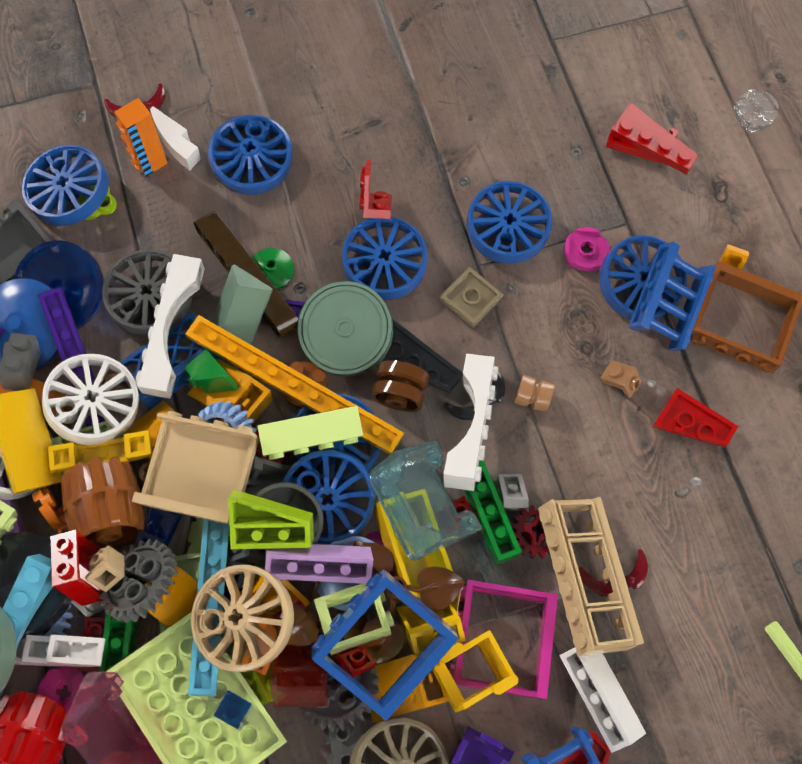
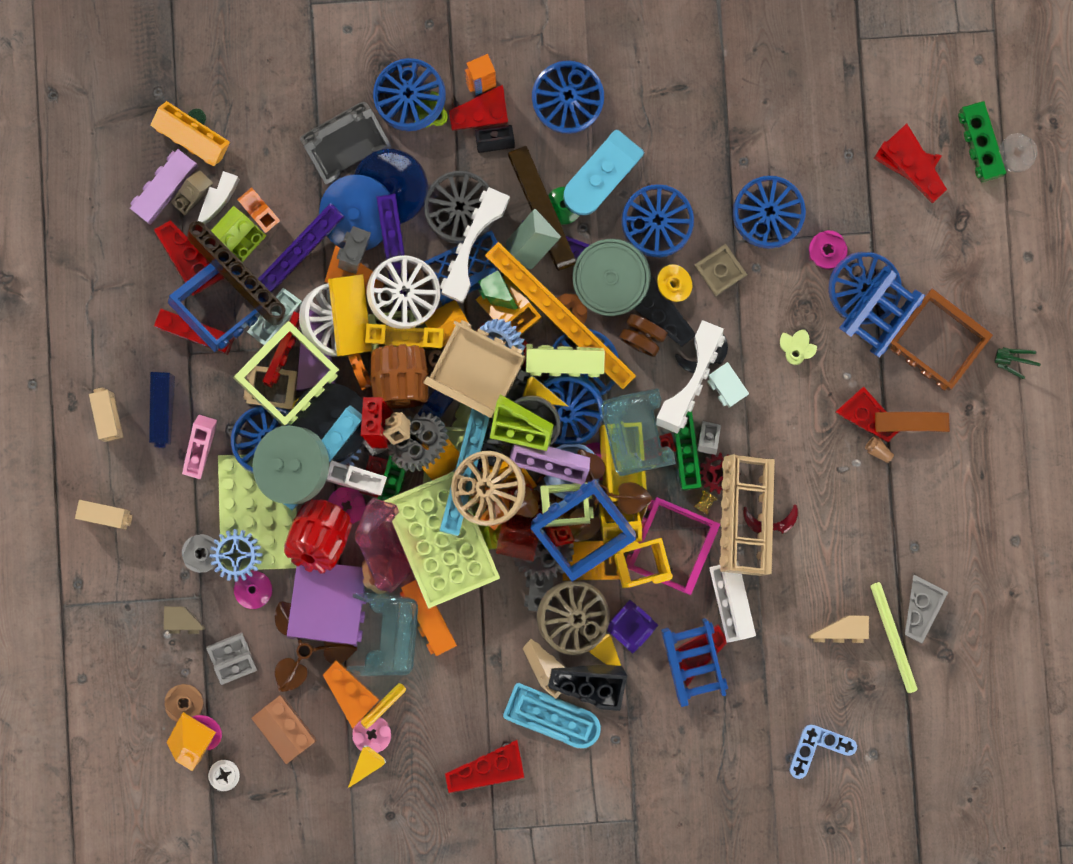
camera: 15 degrees right, 15 degrees up
(153, 190) = (481, 111): none -> red wing
(155, 101) = (492, 29): dark red piece -> none
(176, 139) = (507, 68): white slope -> none
(176, 215) = (495, 138): none -> black slope
(233, 710) = (469, 548): clear blue panel -> none
(278, 473) = (536, 388): none -> yellow sticker
(307, 223) = (601, 173): none -> medium azure piece
(373, 205) = (664, 169): red bracket -> none
(422, 321) = (679, 278): none -> yellow dish
(517, 422) = (727, 385): none -> light aqua brick
(530, 573) = (705, 502): none -> clear yellow bush
(534, 393) = (749, 365): medium nougat wheel -> none
(585, 359) = (798, 343): none -> yellowish green plate
(622, 377) = (823, 367): medium nougat bracket -> none
(716, 106) = (979, 113): none -> green brick
(718, 457) = (879, 449): none -> medium nougat cone
(734, 256) = (948, 287): light orange tile -> none
(746, 413) = (912, 421): none -> dark orange slope
(755, 691) = (845, 628): none -> tan slope

